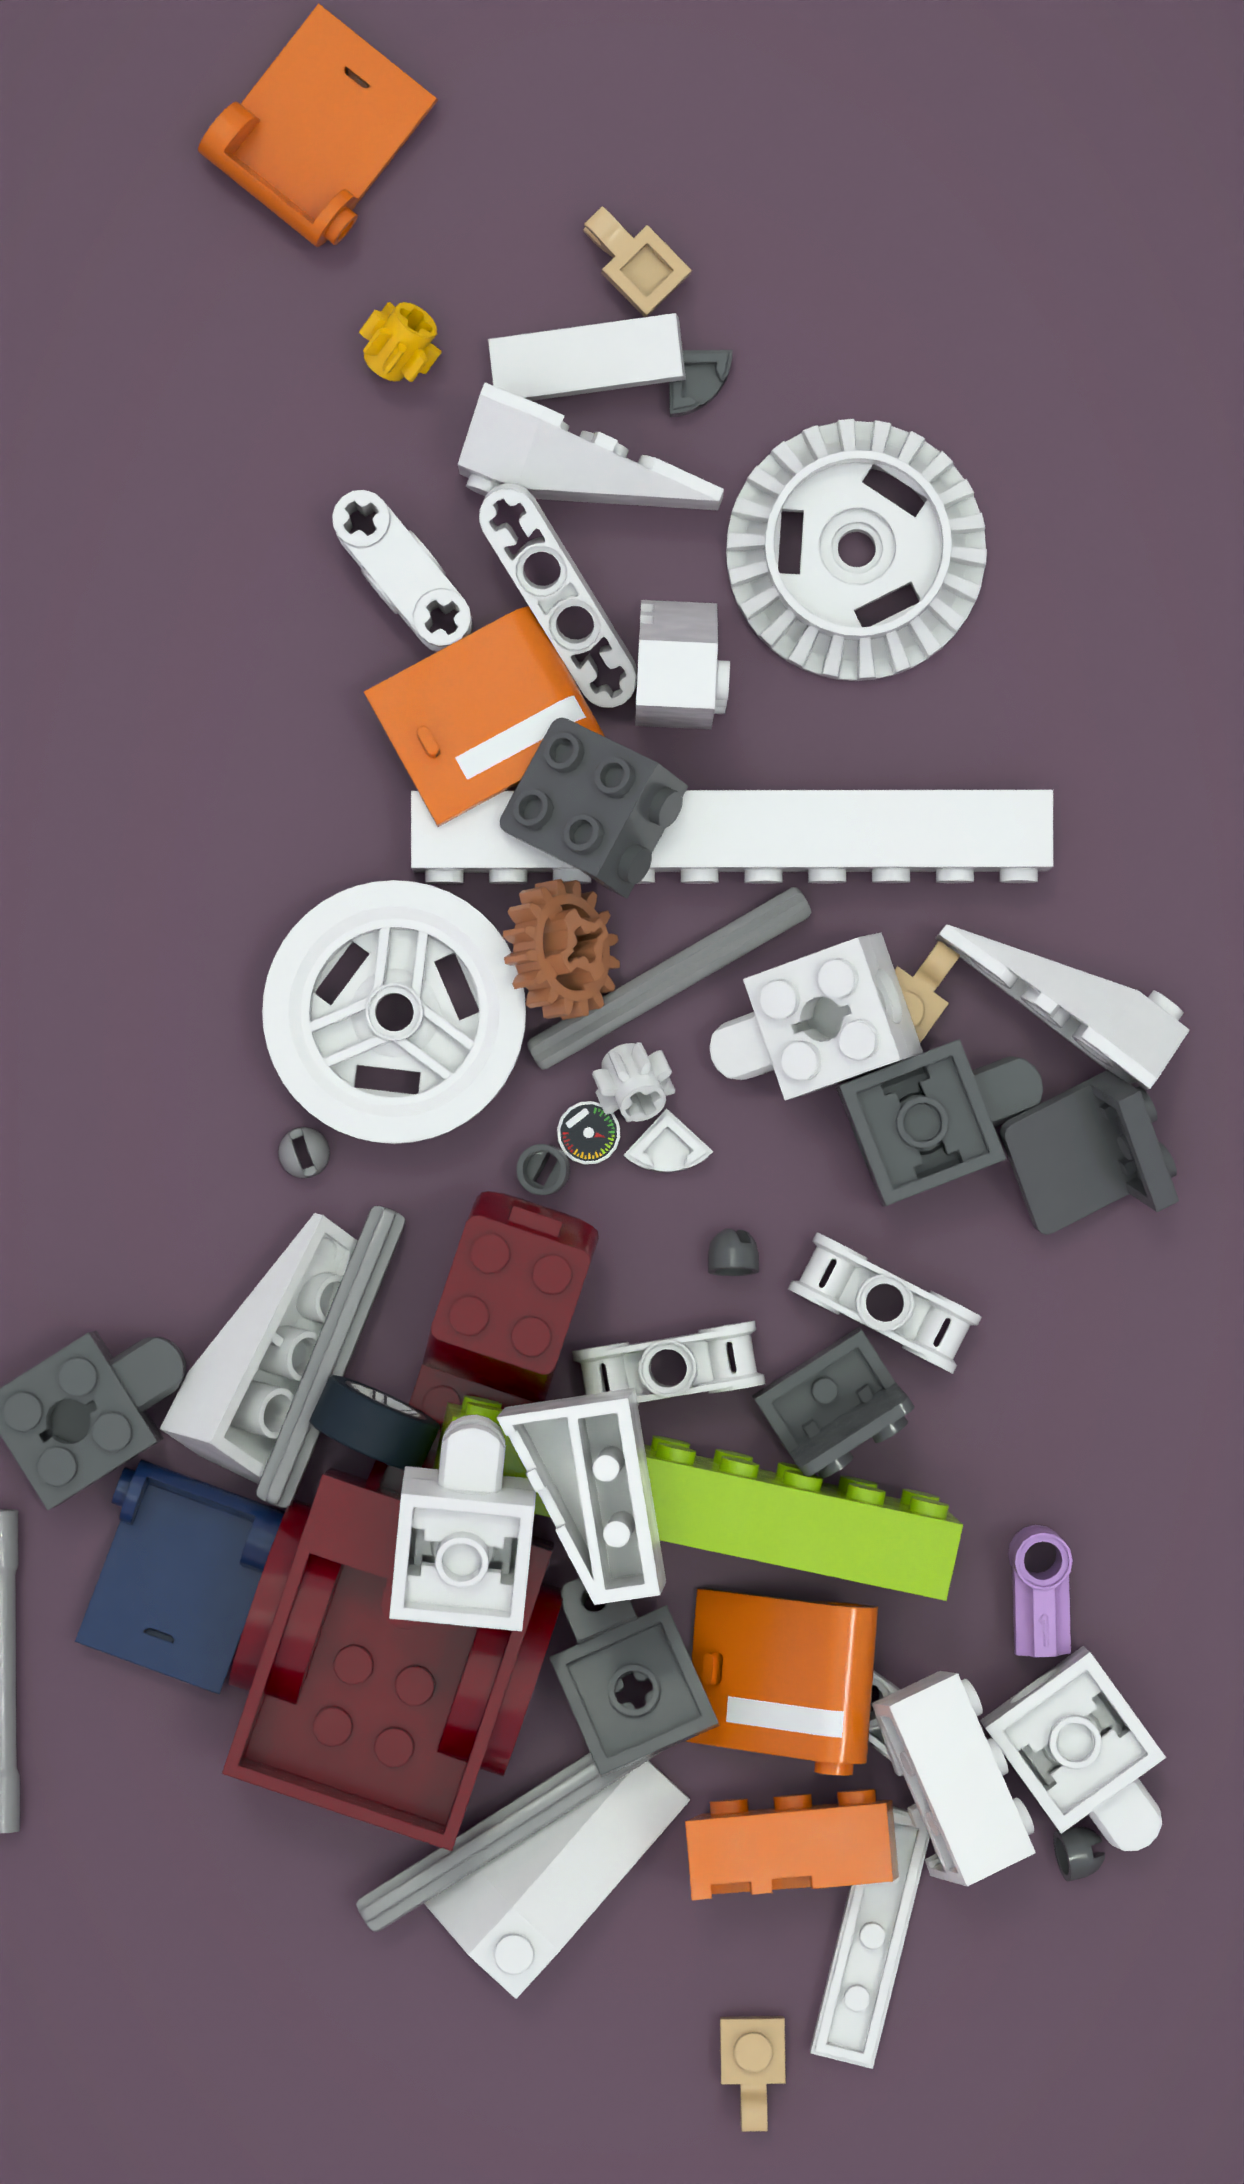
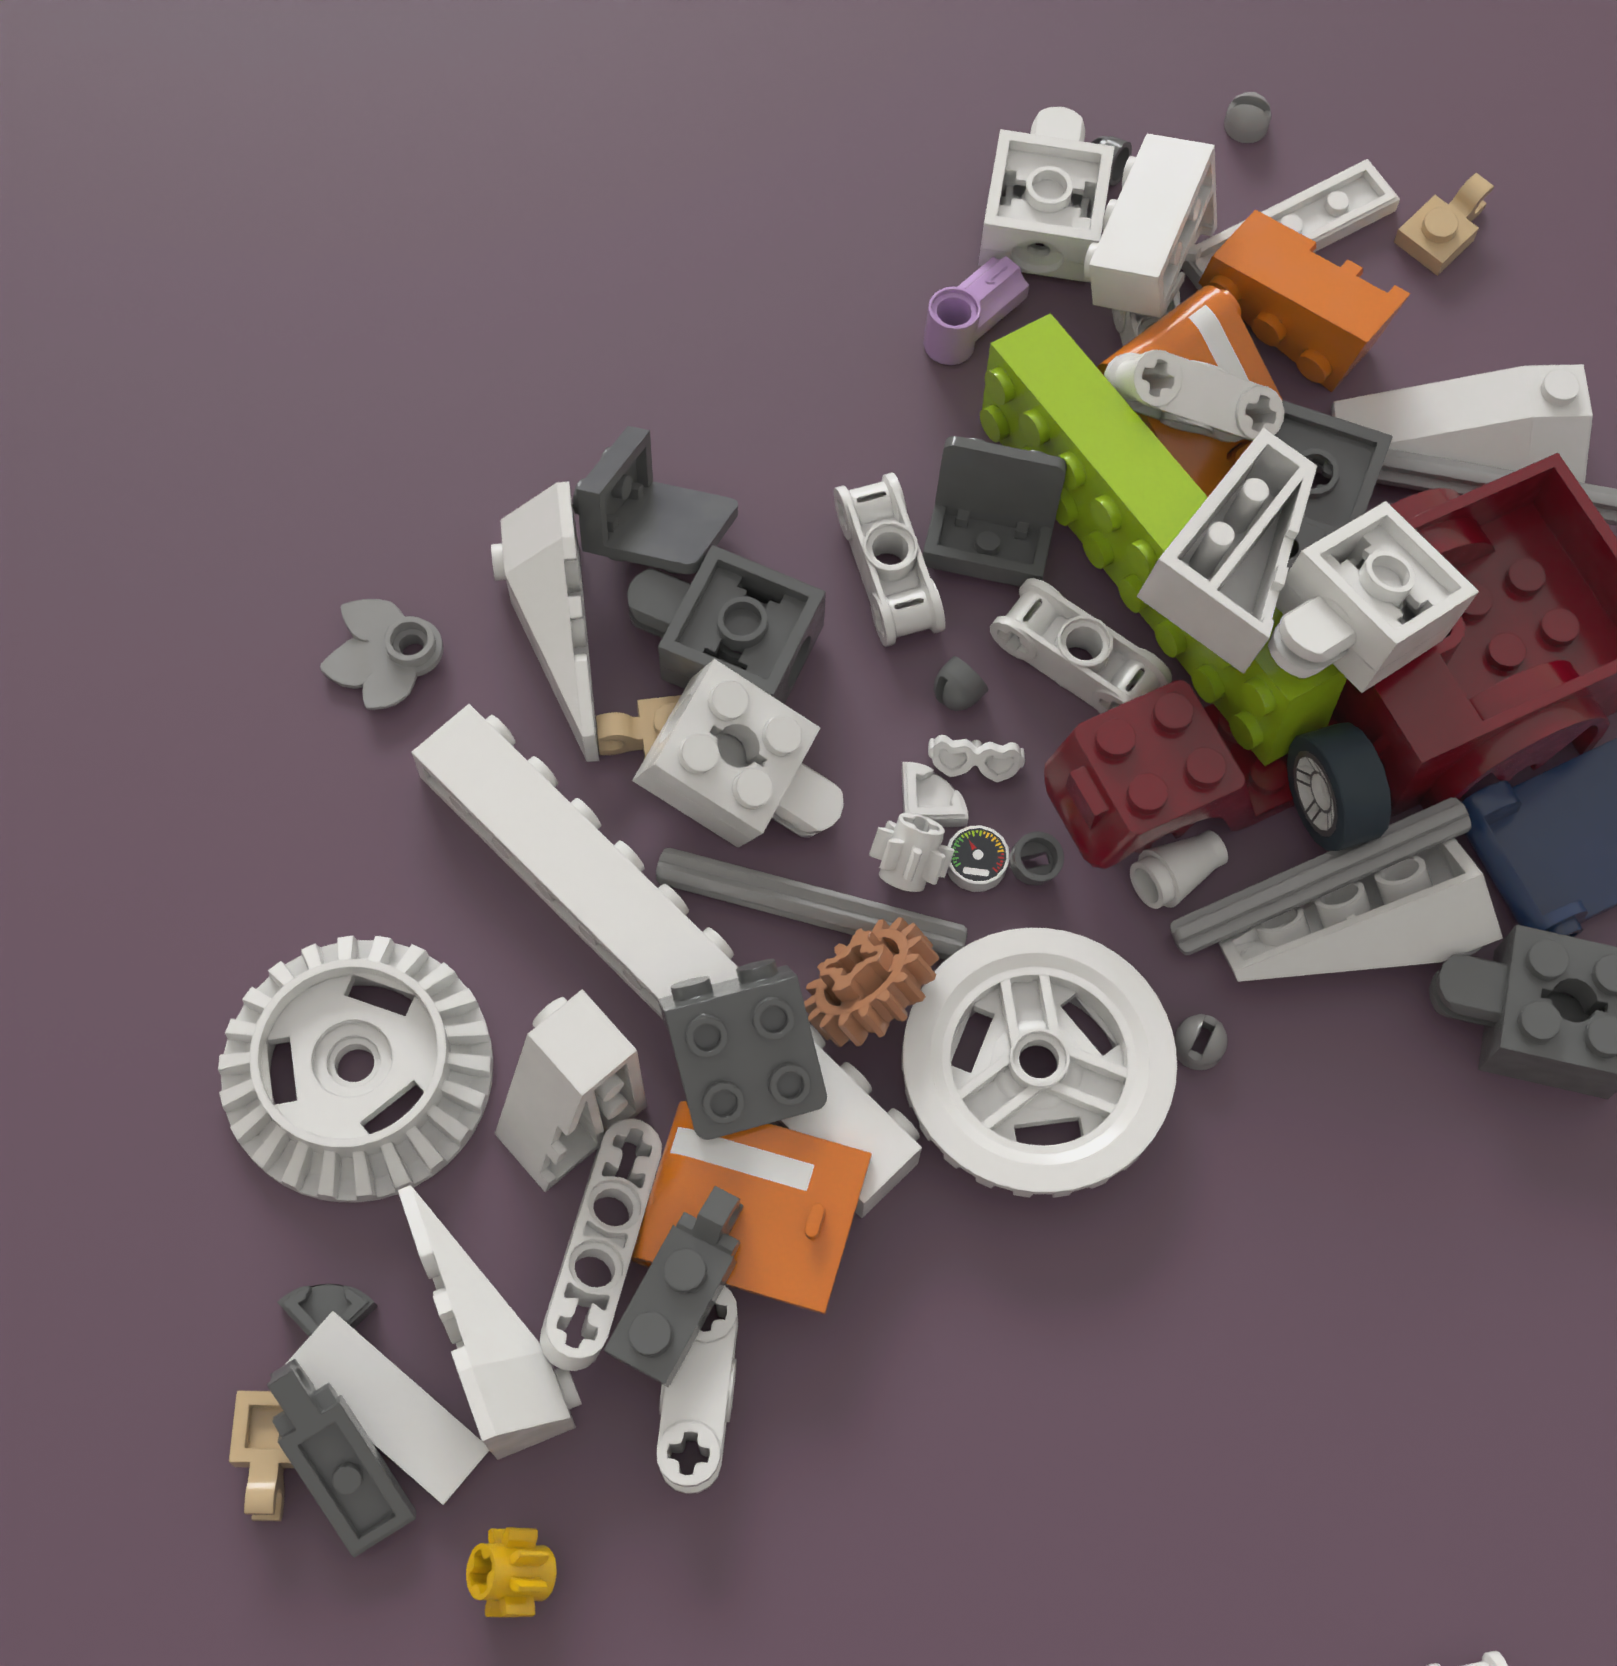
camera: 135 degrees left, 20 degrees down
(432, 1261) = (1175, 869): none -> white cone
(469, 607) = (678, 1290): none -> dark grey hinge
(579, 293) = (337, 1461): none -> dark grey hinge
(674, 1199) = (959, 756): none -> white piece
(772, 1642) = (1195, 396): none -> white piece
(1002, 2006) = (1247, 117): none -> light grey hinge
(1179, 848) = (375, 652): none -> light grey plate

